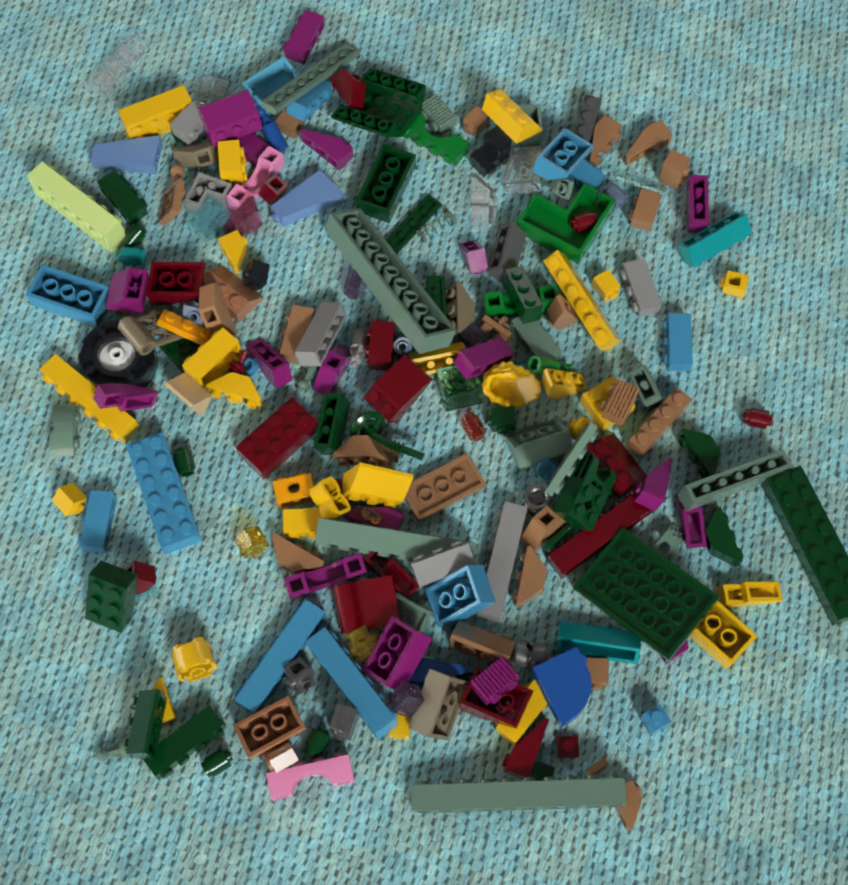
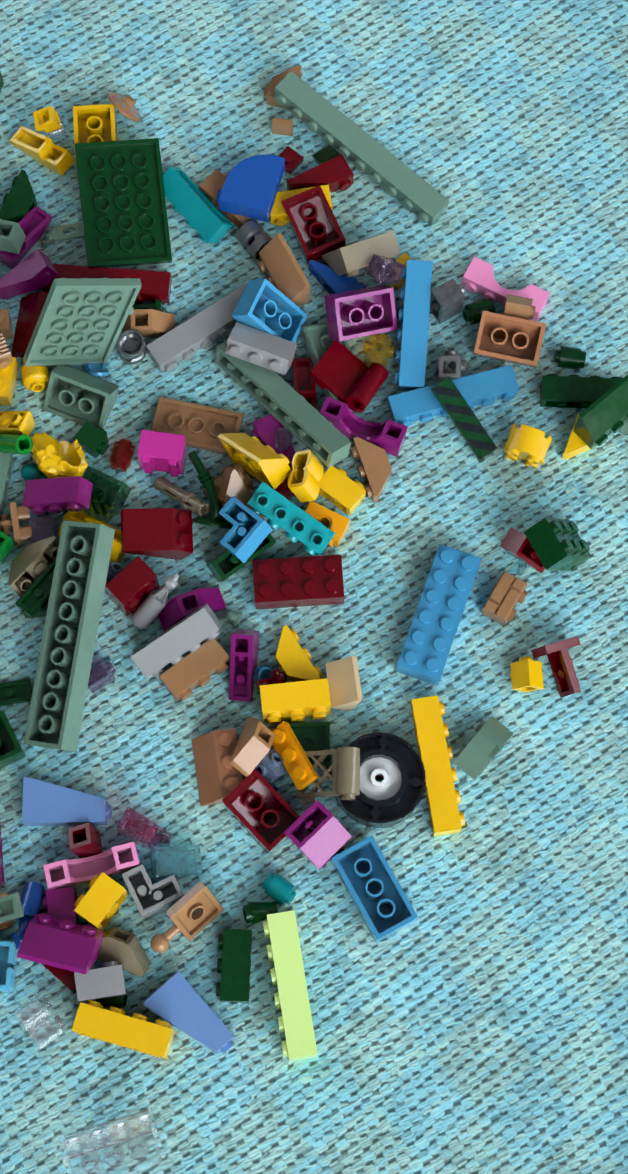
camera: 140 degrees left, 5 degrees up
(58, 529) = (561, 664): none -> dark red bracket
(97, 521) = (516, 637): dark azure brick -> none
(124, 396) = (406, 728): magenta slope -> none
(126, 540) = (504, 598): none -> medium nougat brick
(184, 462) = (397, 630): dark green brick -> none
(234, 249) = (177, 809): yellow slope -> none
(251, 542) = (399, 506): clear yellow brick -> none
(255, 274) = (180, 761): black brick -> none
(257, 641) = (463, 418): none -> tile
(313, 462) = (290, 518): none -> teal brick
(334, 426) = (247, 529): none -> dark azure brick
(404, 427) = (186, 499): none -> dark tan pin
(444, 443) = (162, 452): none -> dark pink container
(495, 681) = (305, 225): magenta brick -> none
(531, 578) = (197, 294): medium nougat slope -> none
(655, 719) = (207, 121): dark azure brick -> none
(725, 675) = (125, 105): none -> medium nougat dish
(761, 612) = (51, 122): none -> yellow leg

